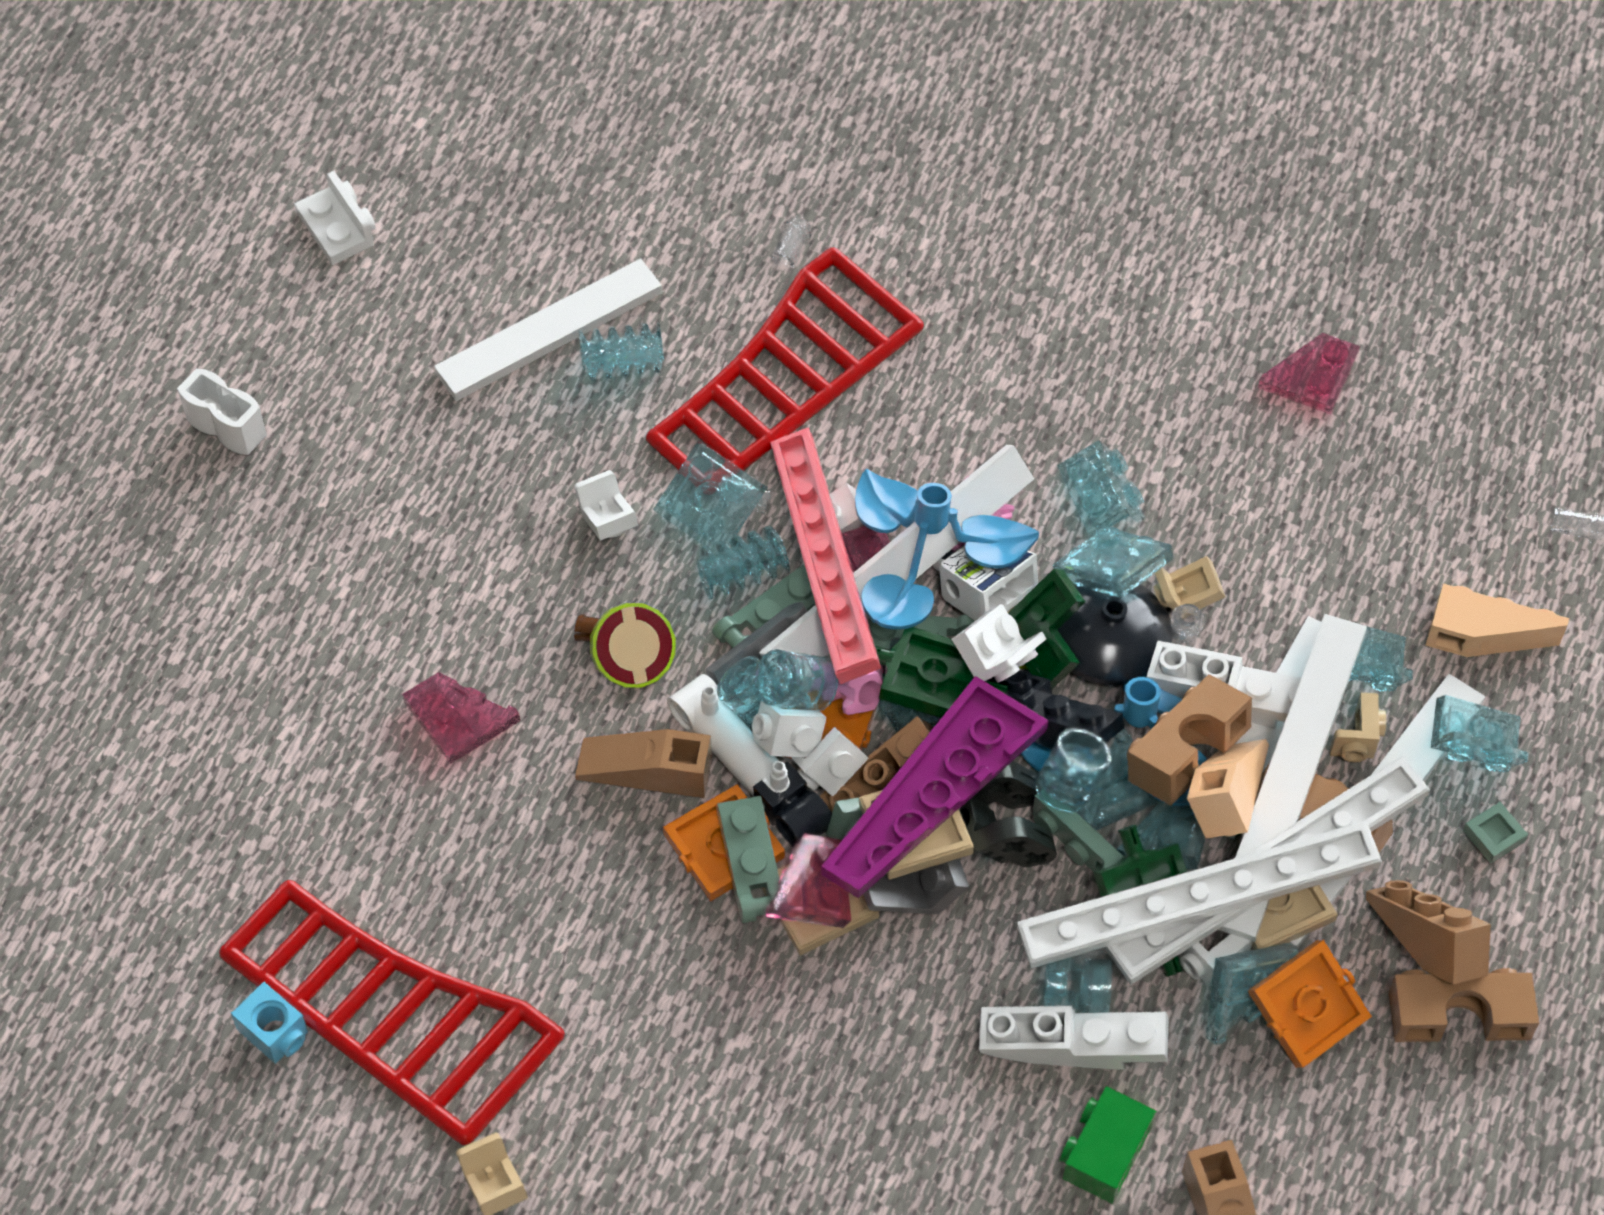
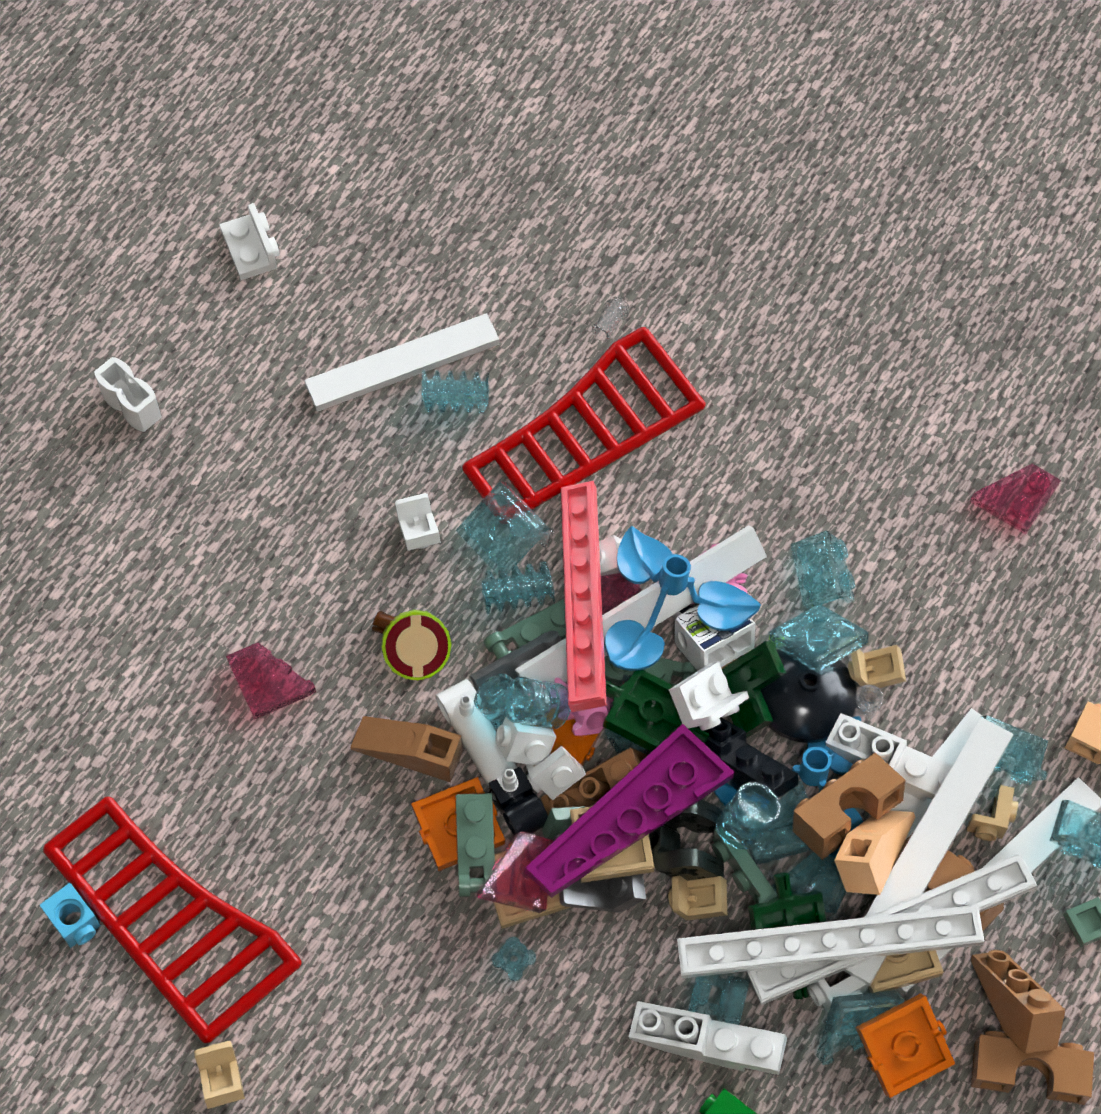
camera: 10 degrees right, 5 degrees up
(818, 973) = (511, 948): none -> clear light blue plate
(1030, 879) = (698, 897): none -> tan bracket

